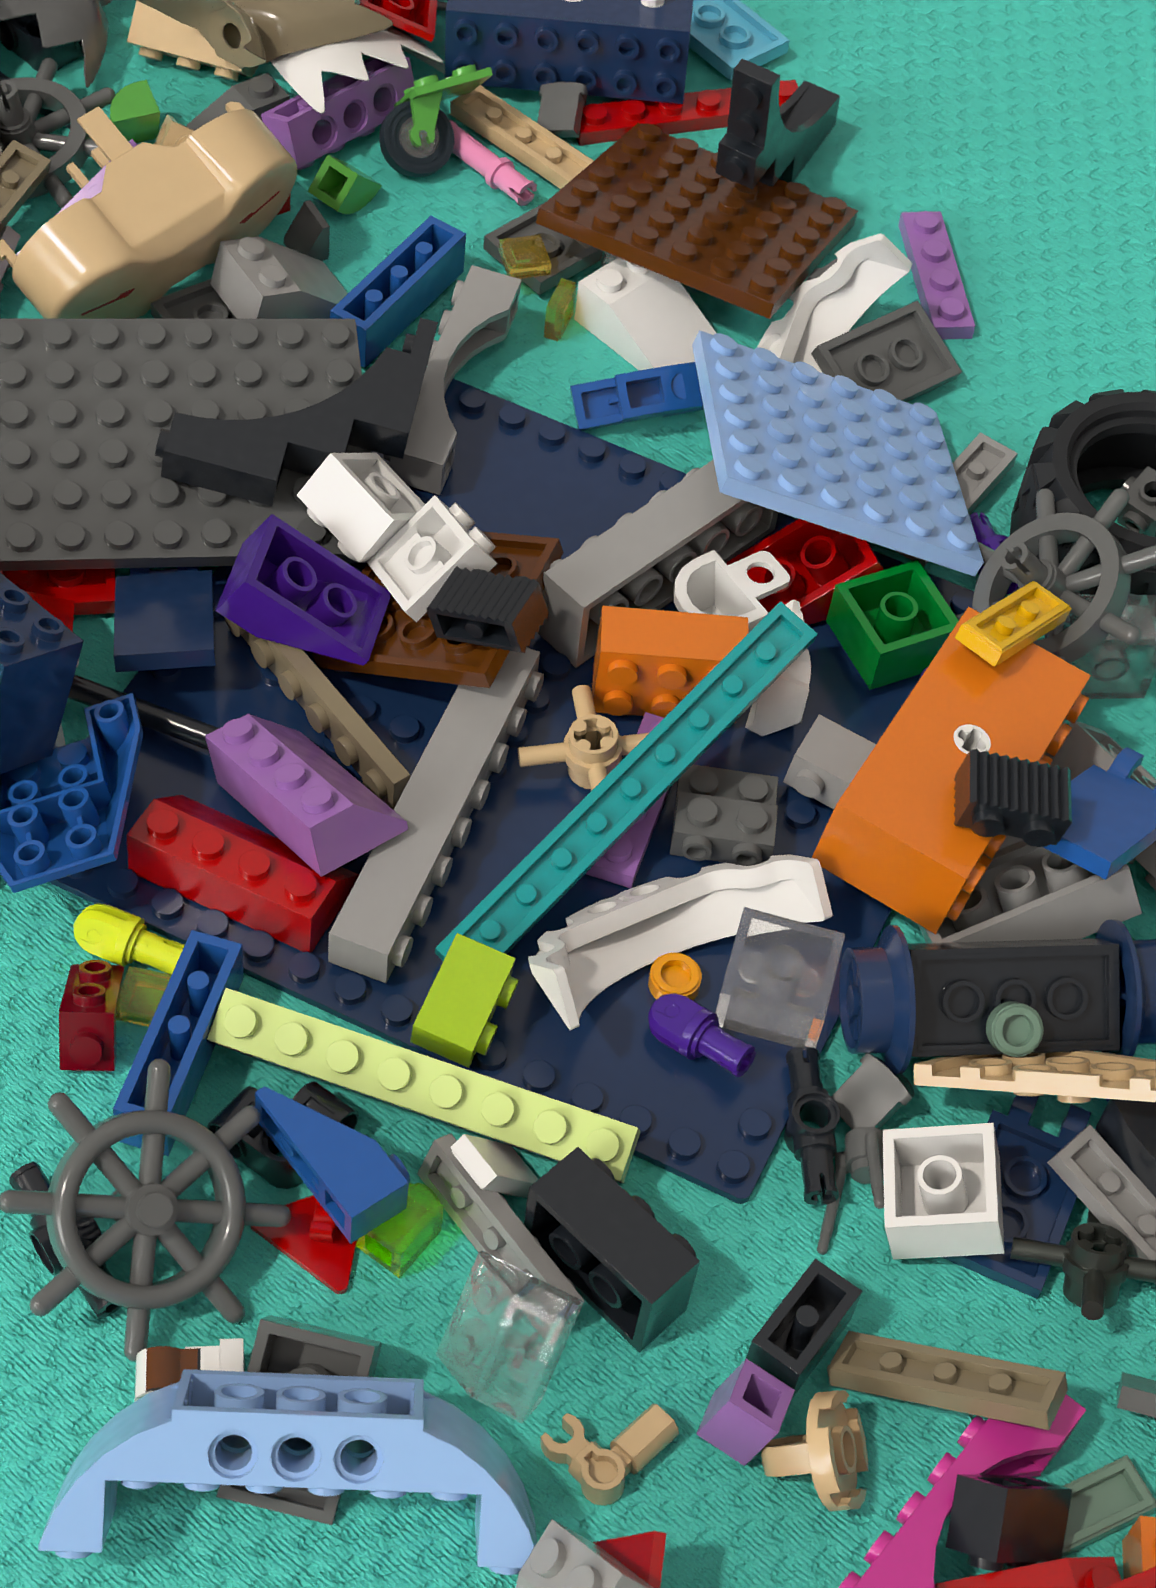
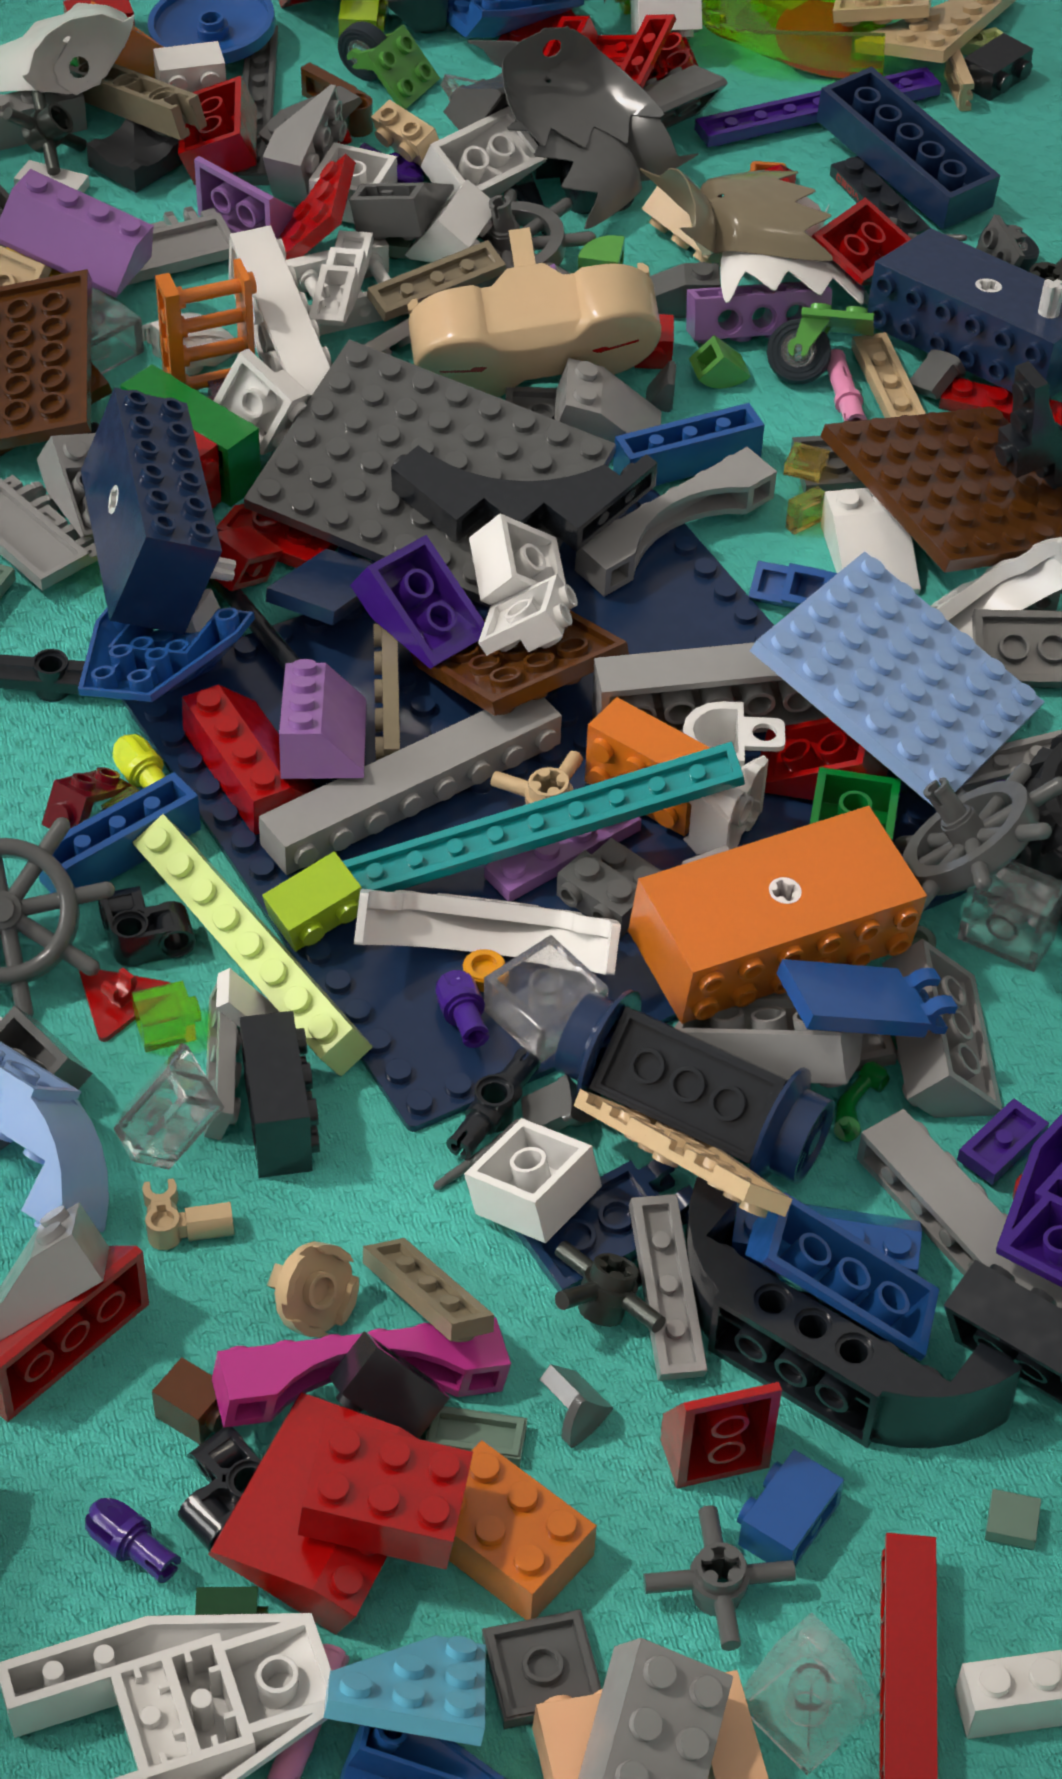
camera: 40 degrees right, 5 degrees down
(338, 1164) = (140, 951): blue slope -> none
(488, 609) = (526, 660): black brick -> none
(745, 1412) = (278, 1233): medium lavender brick -> none
(804, 1325) = (364, 1210): black brick -> none
(1013, 623) = (891, 830): yellow tile -> none
(1013, 798) = (768, 934): black brick -> none
(1014, 1029) = (671, 1103): sand green tile -> none

